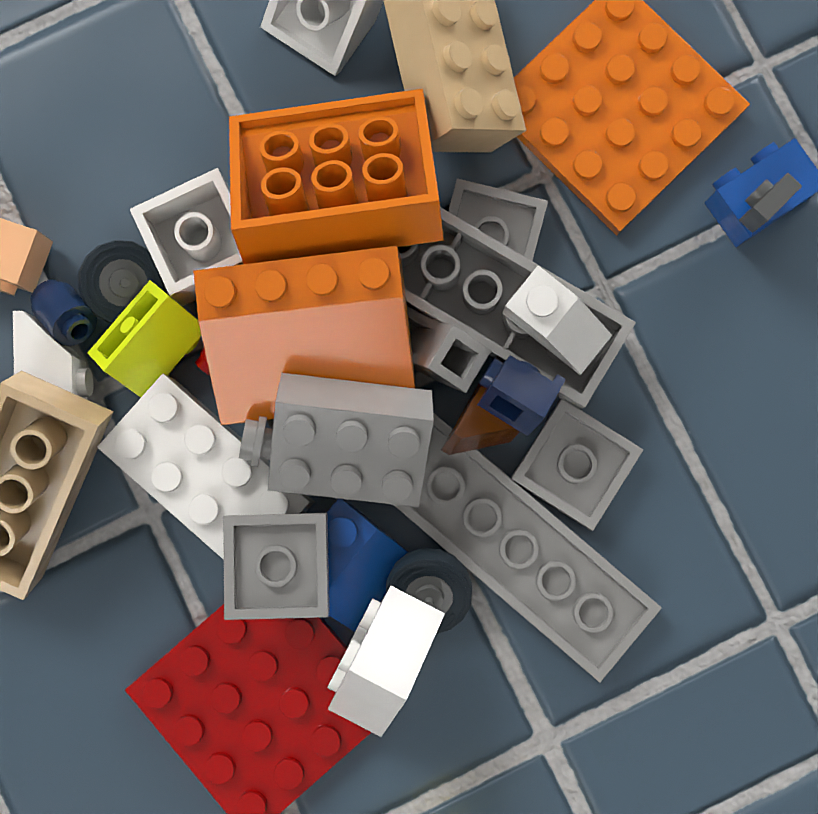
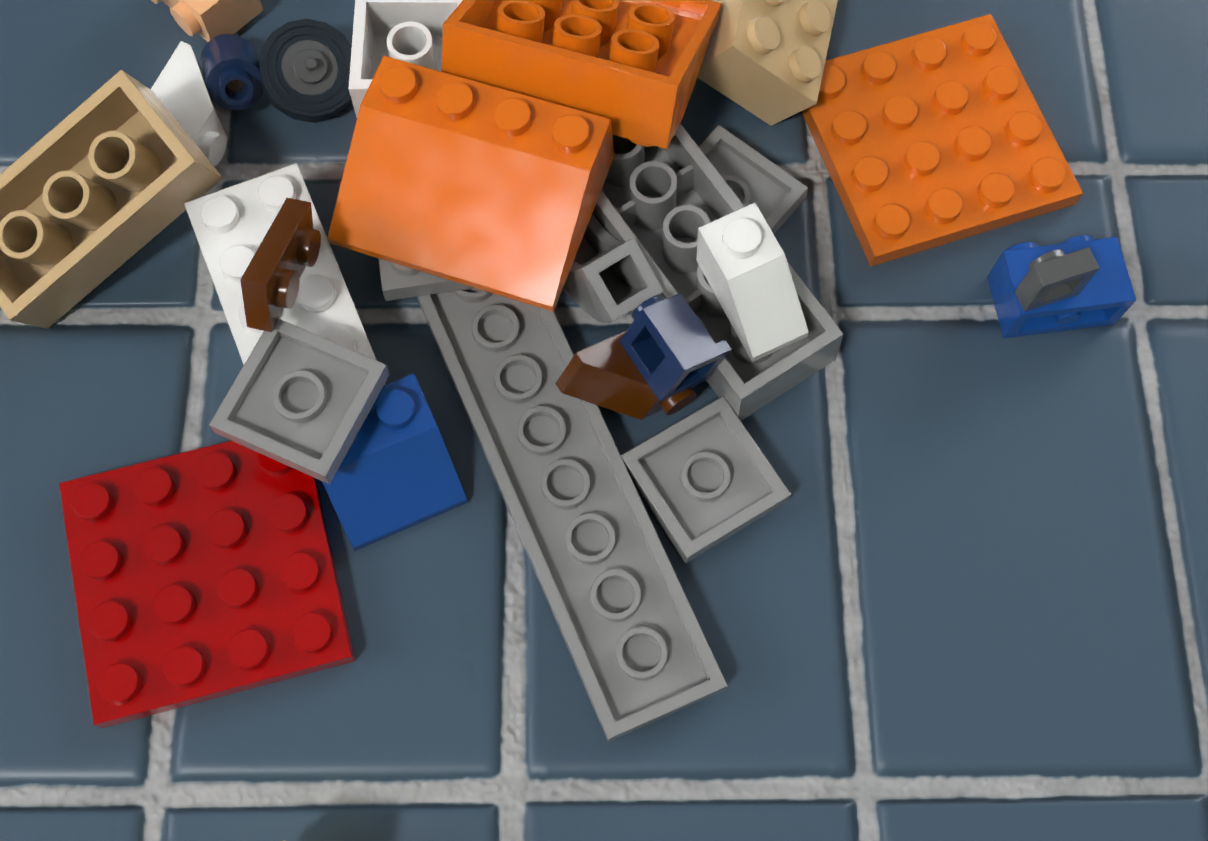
camera: 20 degrees right, 15 degrees down
(146, 340) = (300, 128): neon yellow brick -> none
(212, 494) = (276, 268): none -> reddish brown plate
(256, 441) = (354, 265): light grey plate -> none
(350, 440) = (454, 306): light grey brick -> none
(383, 660) = (363, 570): white brick -> none
(435, 580) = (460, 535): black wheel -> none

